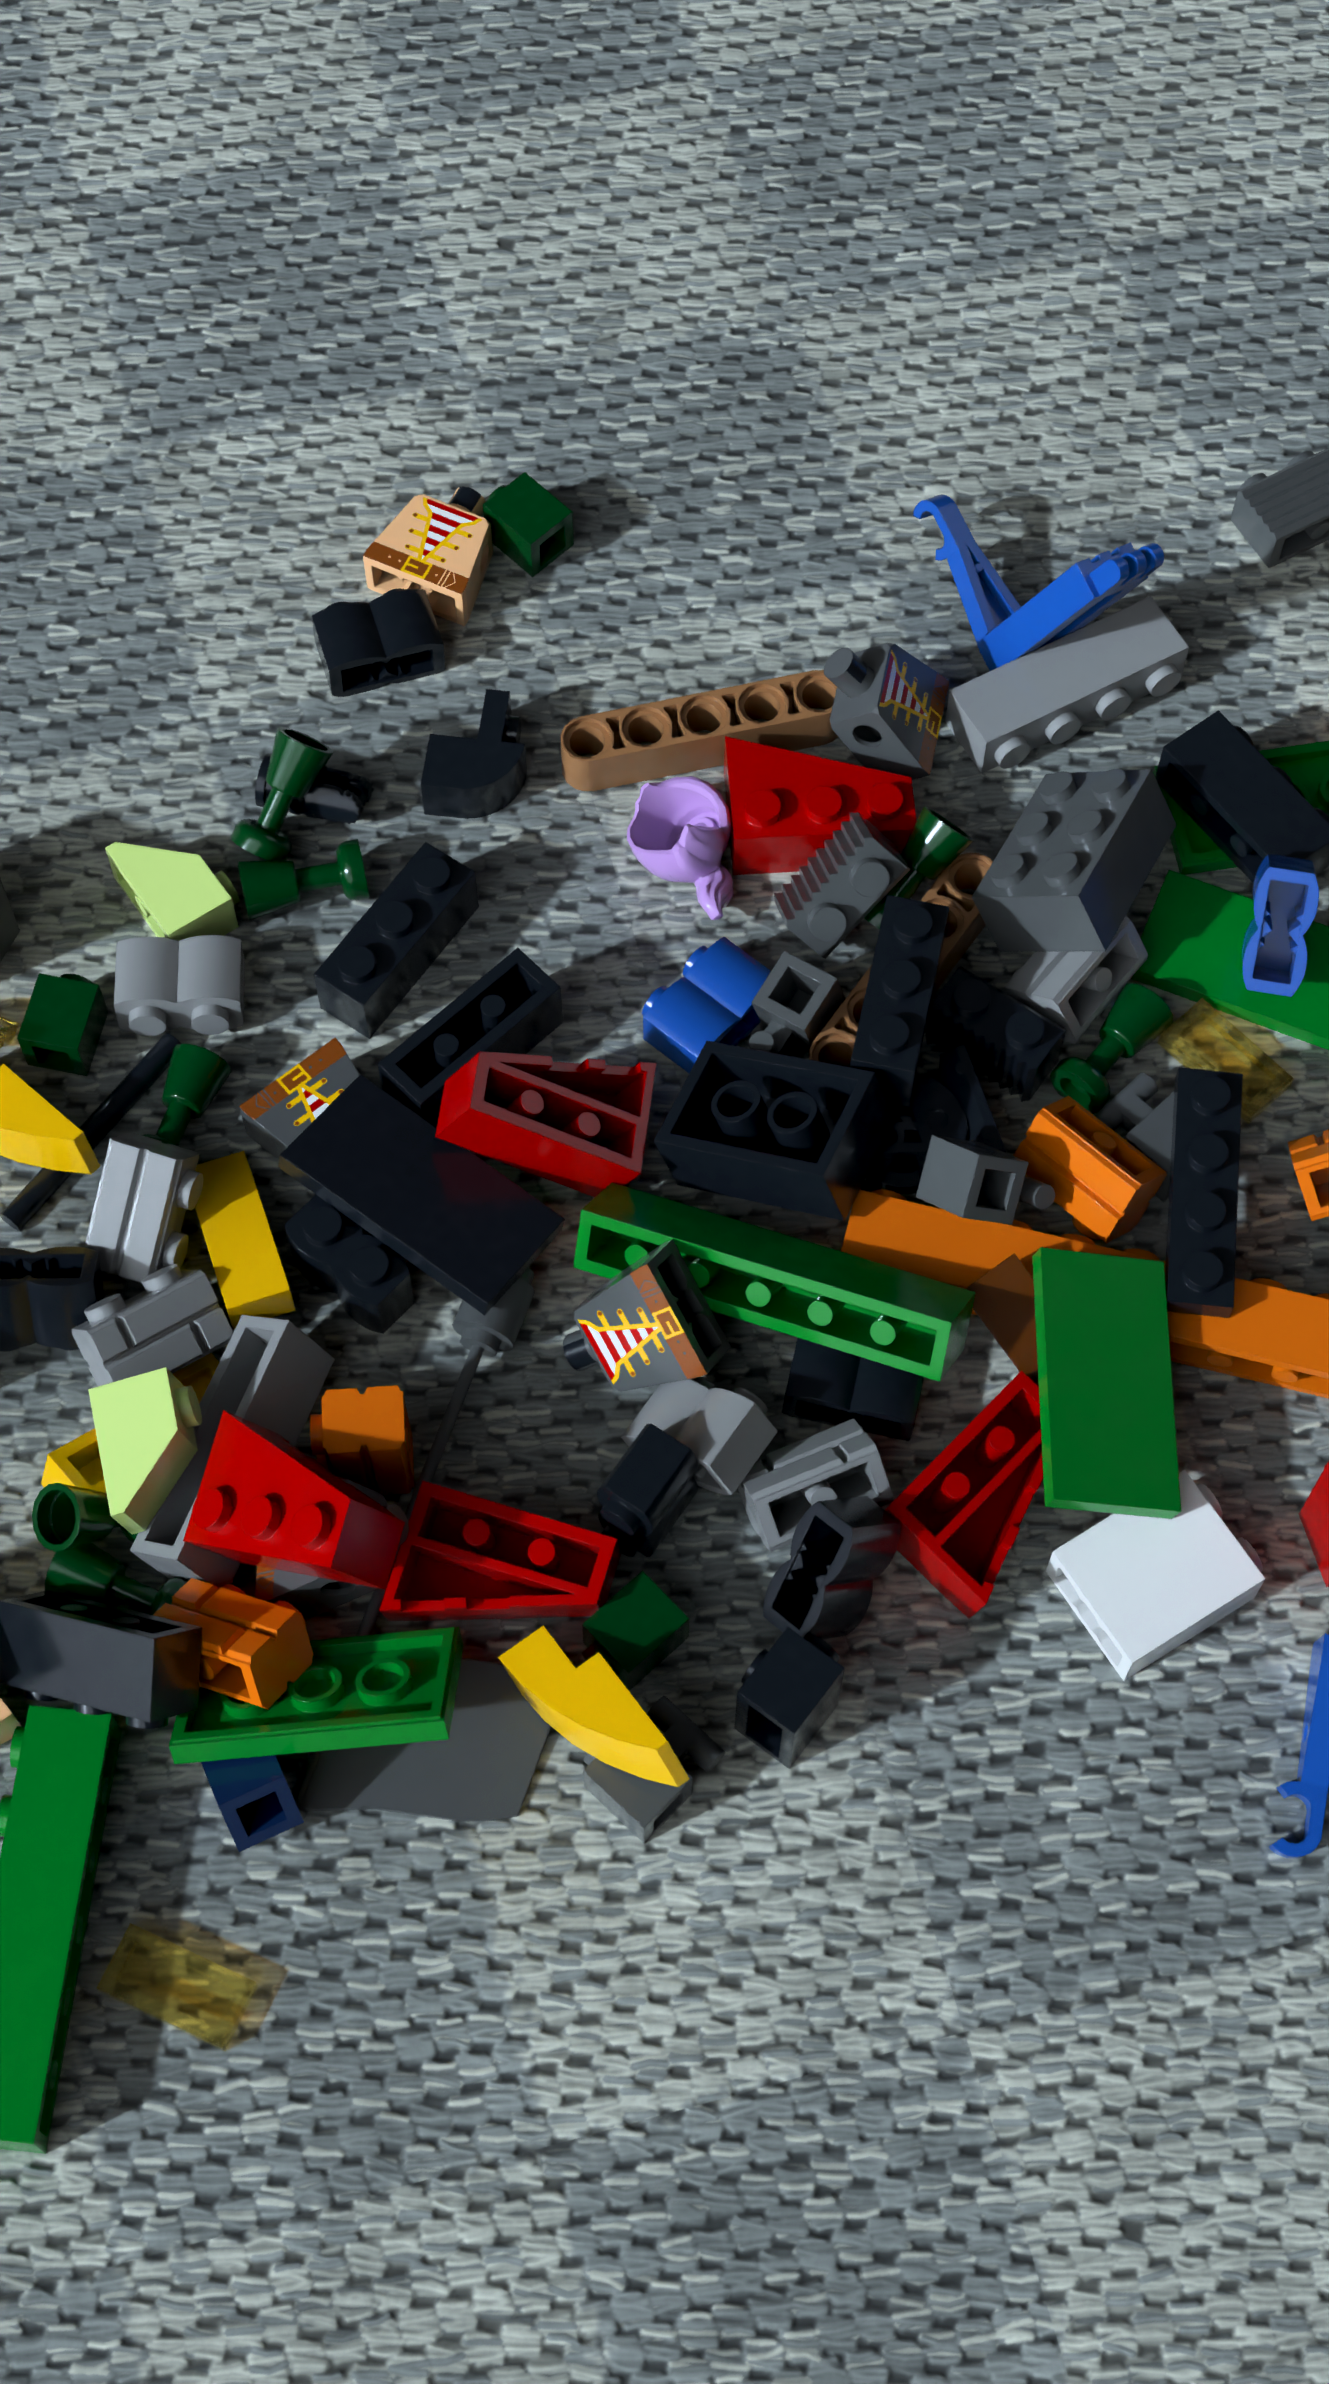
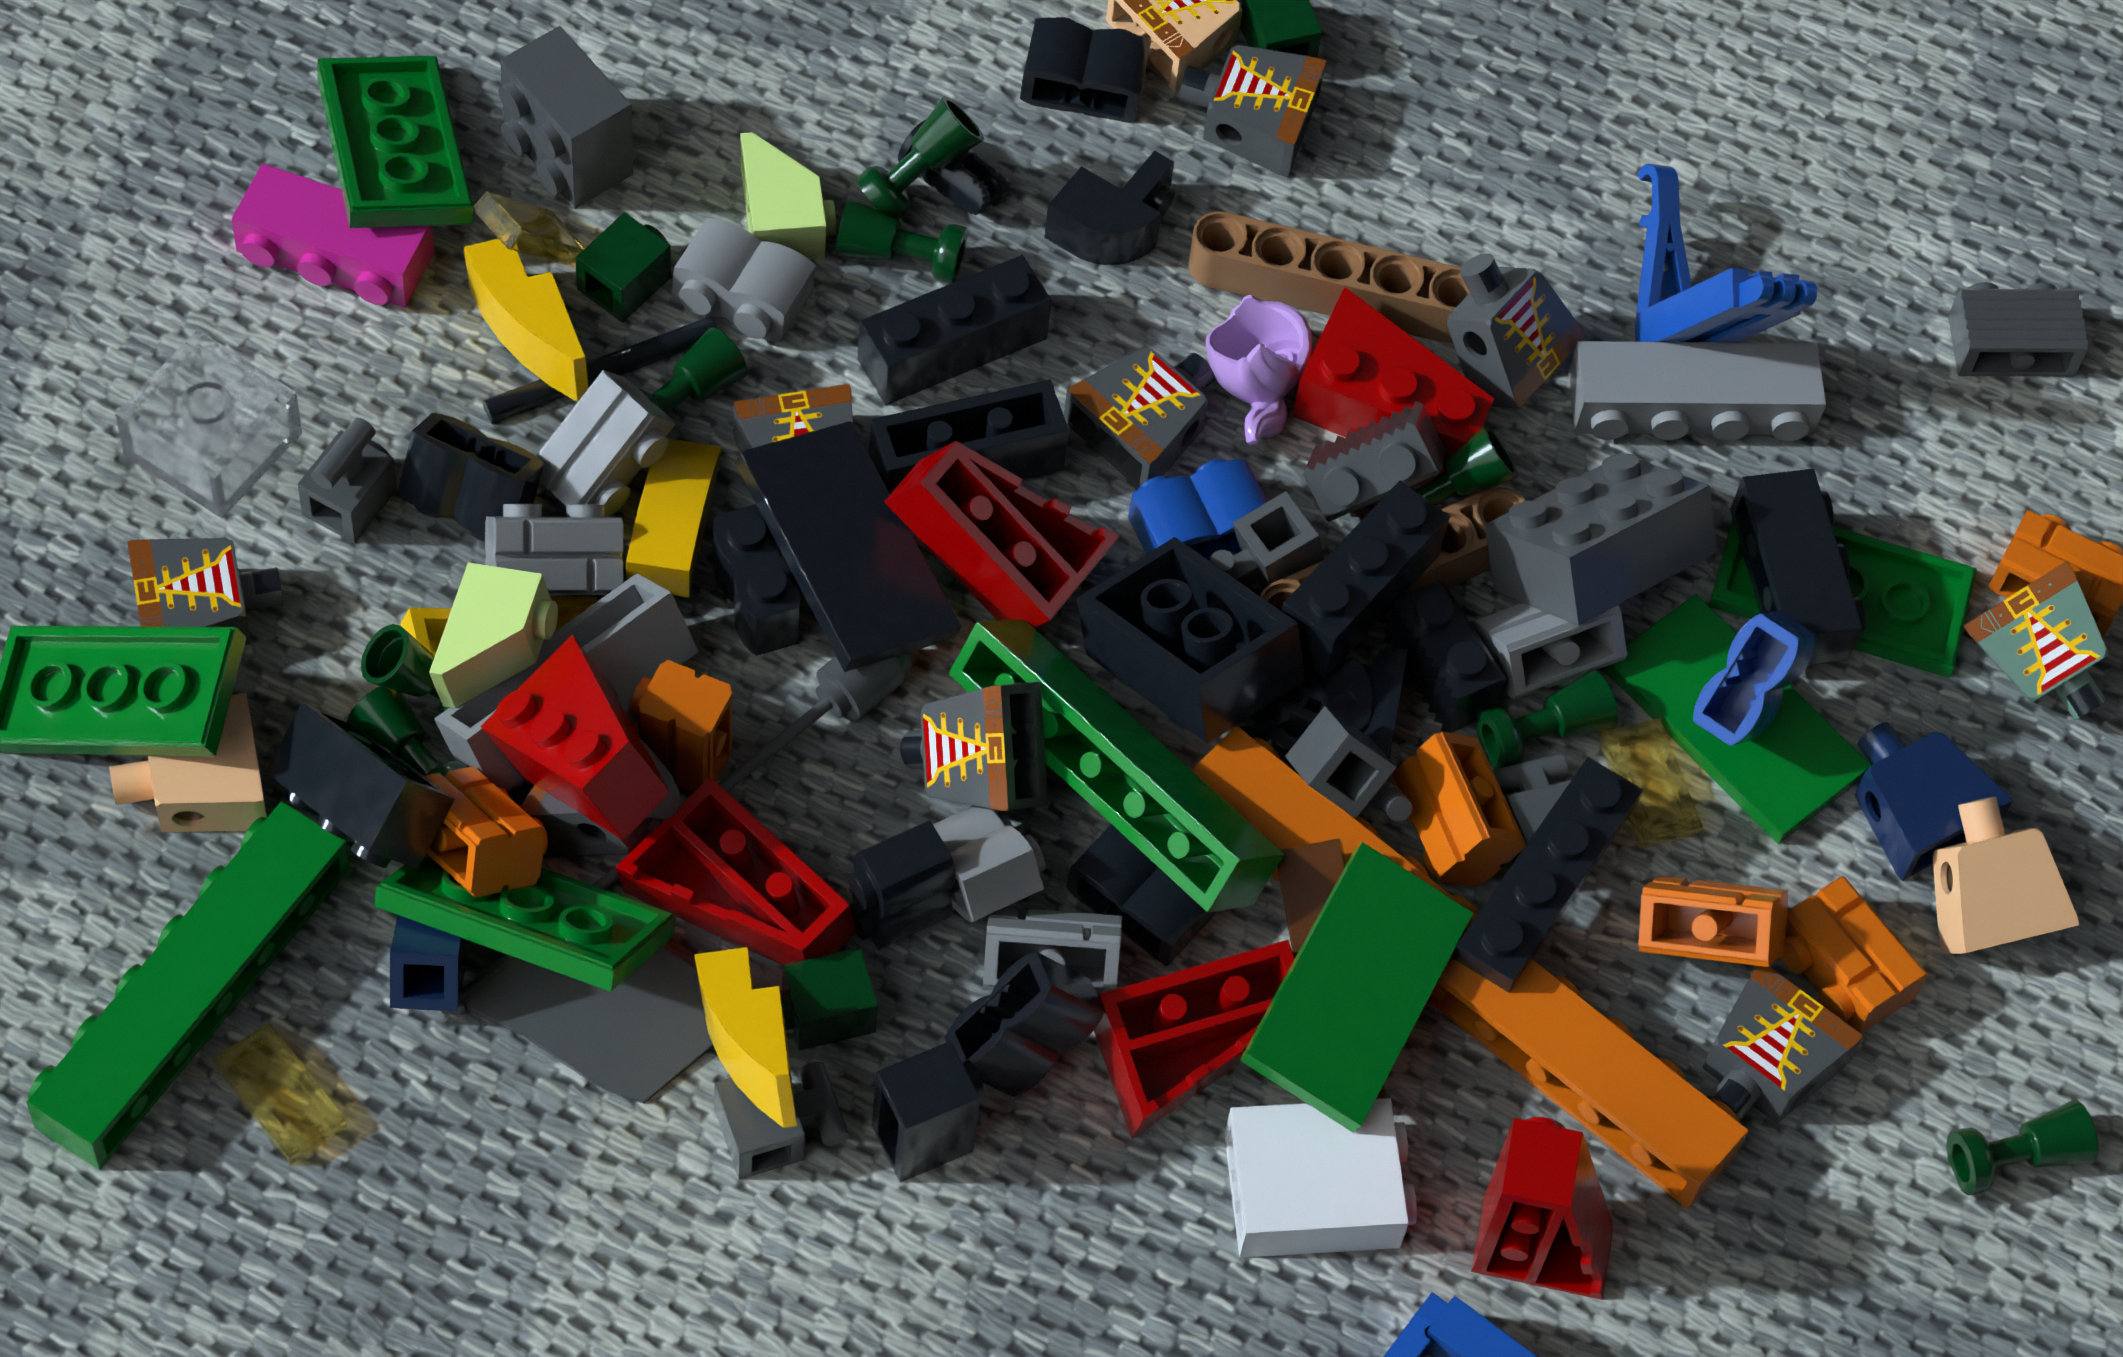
camera: 20 degrees right, 5 degrees down
(548, 603) = (1258, 103): none -> dark grey torso
(605, 936) = (1141, 411): none -> dark grey torso

